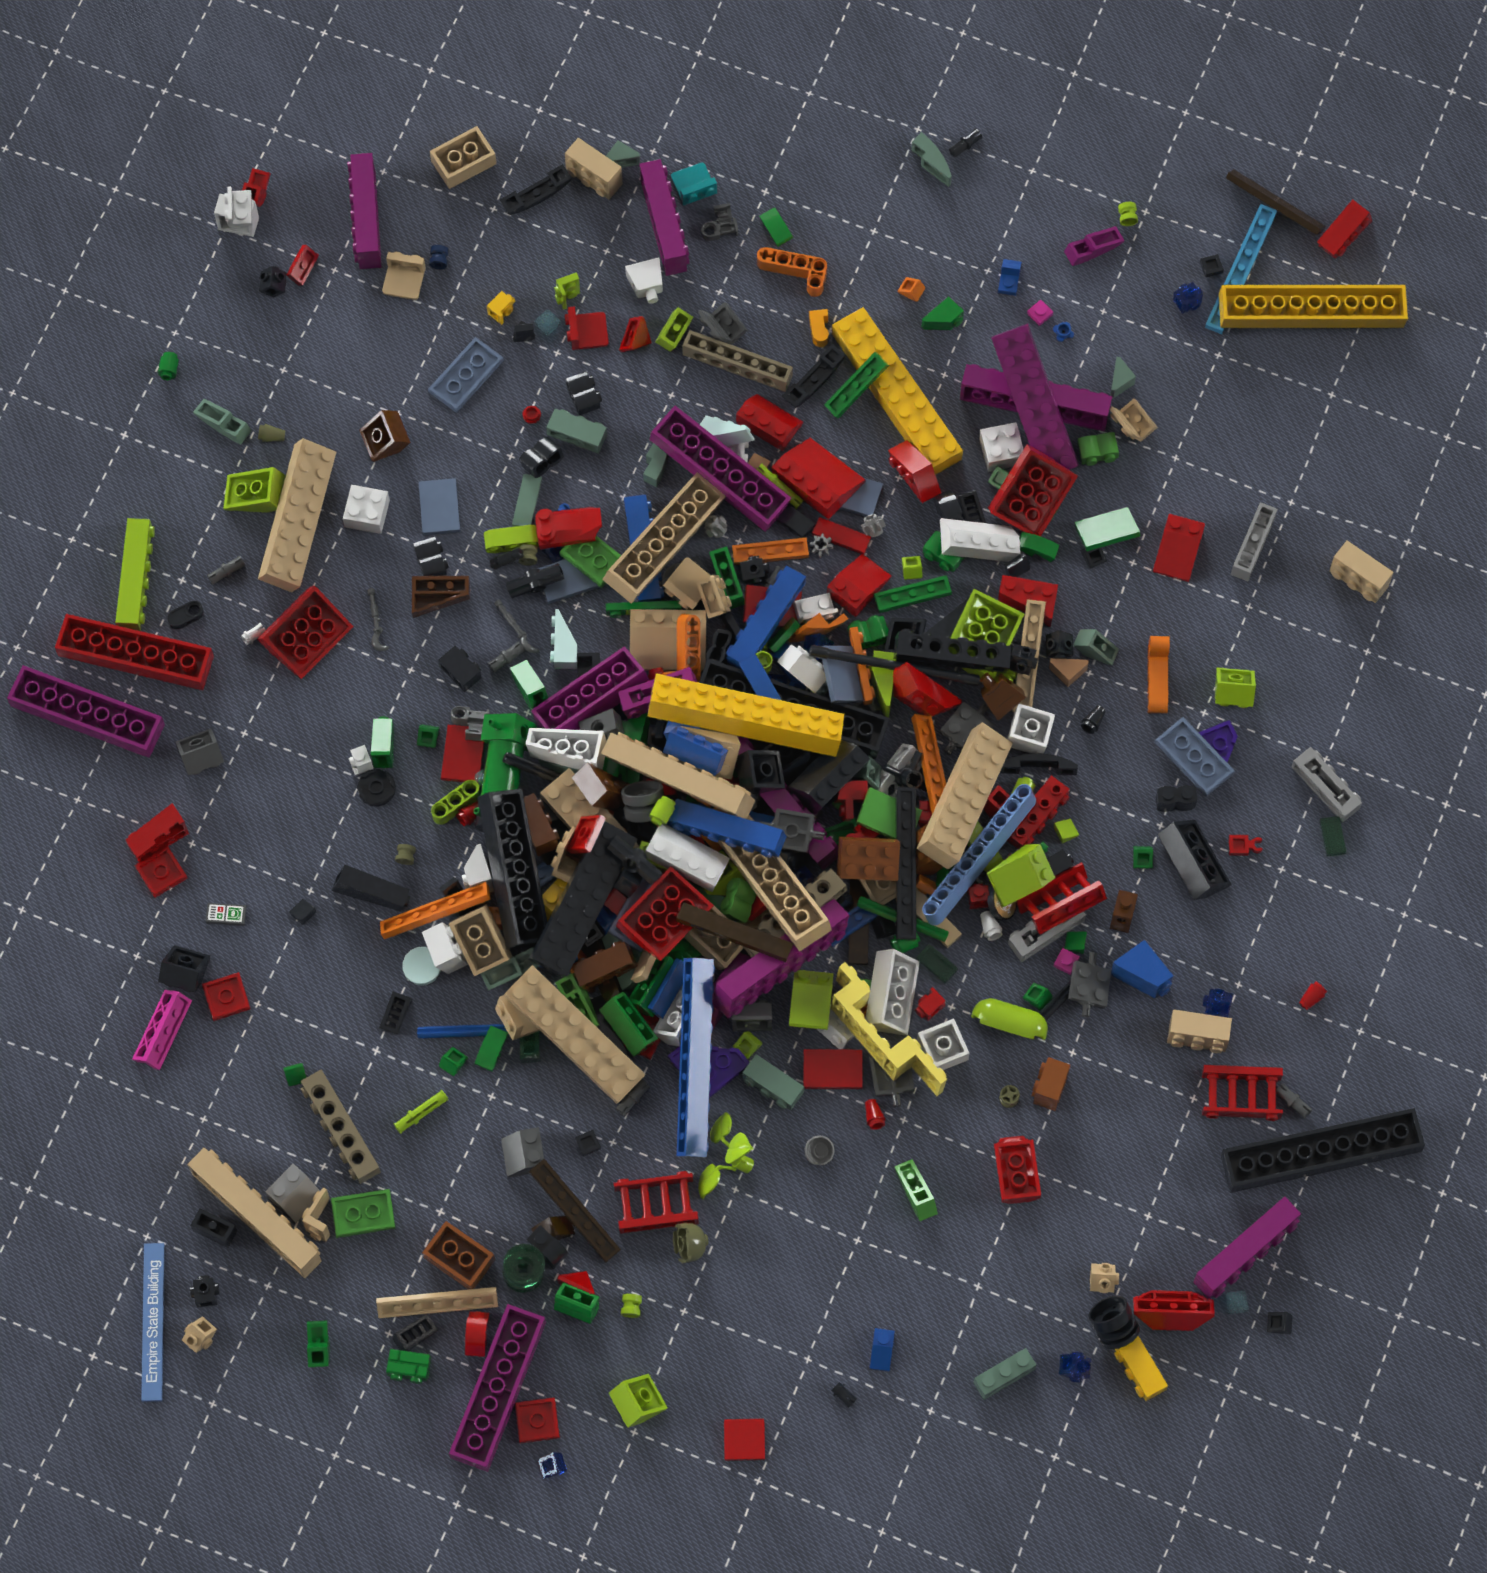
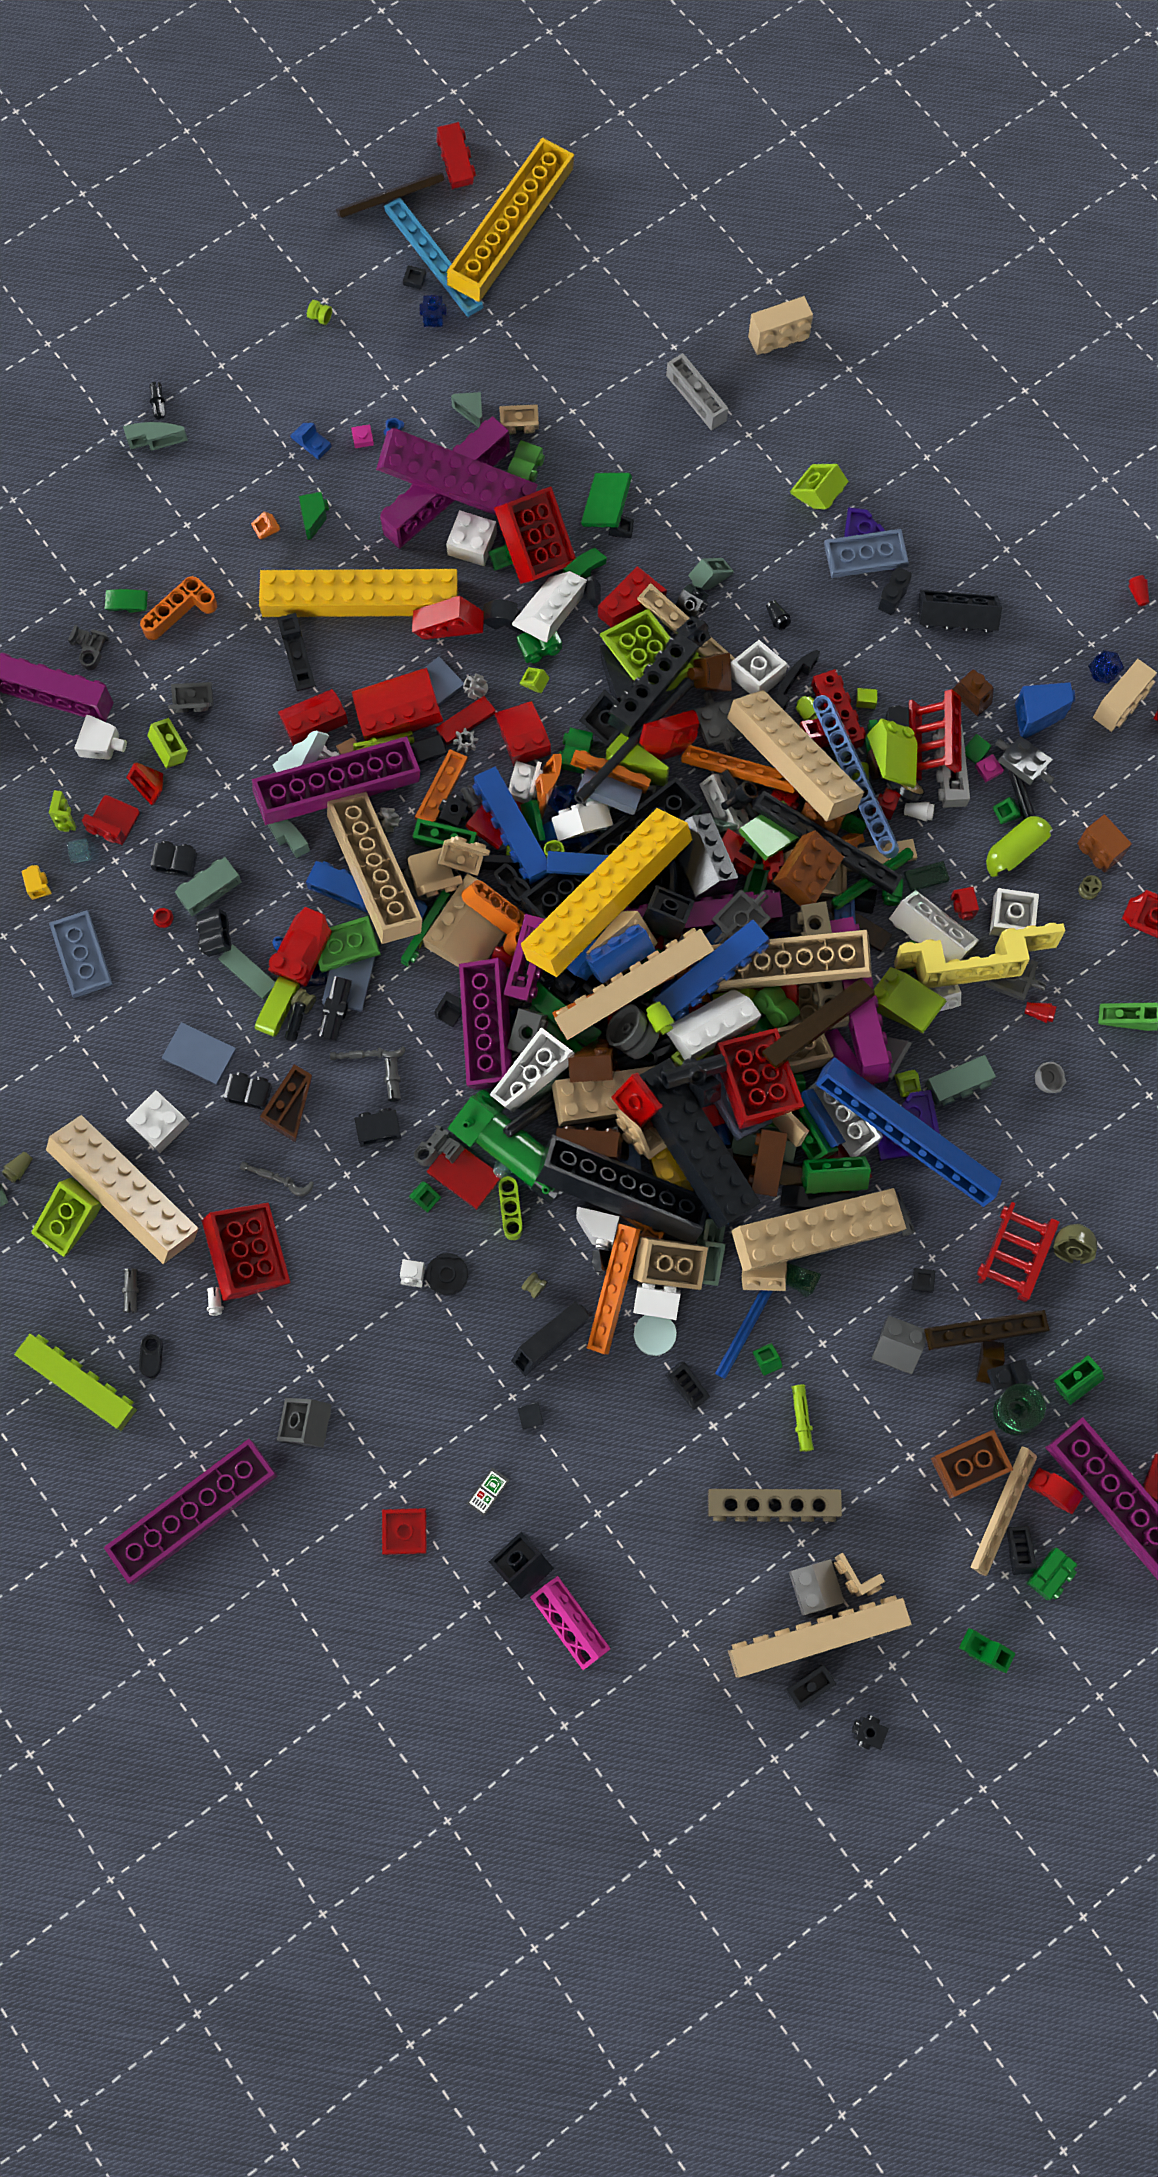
camera: 60 degrees left, 5 degrees up
(134, 652) = (158, 1428): red brick -> none
(153, 1322) = (869, 1802): medium blue tile -> none
(157, 833) = (365, 1513): red wedge -> none
(199, 1334) = (911, 1763): tan brick -> none
(226, 996) = (573, 1540): red tile -> none
(294, 1074) = (695, 1517): green slope -> none
(363, 1213) = (871, 1531): bright green tile -> none
(382, 742) = (407, 1241): slope -> none
(384, 435) = (92, 1062): reddish brown slope -> none
(466, 814) = (529, 1202): red cone -> none
(491, 1048) = (779, 1315): green slope -> none
(523, 332) = (75, 876): black tile -> none
(529, 684) = (438, 1073): slope -> none
(565, 646) = (417, 1019): light aqua slope -> none
(577, 996) = (778, 1206): bright green slope -> none
(579, 1280) = (1055, 1366): red slope -> none
(631, 1305) = (1106, 1331): lime wheel -> none
(694, 183) = (33, 643): teal bracket -> none
(735, 1155) = (1027, 1147): lime plant -> none
(737, 361) = (236, 707): dark tan brick -> none
(818, 331) = (249, 622): light orange leg -> none
(832, 1069) = (975, 1022): red tile -> none
(856, 385) = (332, 619): green plate -> none
(912, 594) = (562, 693): green plate -> none
(971, 495) = (510, 591): black slope -> none
(1068, 669) = (719, 608): medium nougat slope -> none
(1093, 245) = (329, 357): magenta slope -> none
(1142, 857) = (929, 650): green slope -> none
(1158, 674) = (769, 539): orange beam -> none
(1178, 547) = (660, 454): red slope -> none
(1240, 845) = (968, 565): red plate -> none
(1332, 836) = (1002, 491): clear green tile -> none
(1347, 801) = (954, 467): light grey brick -> none

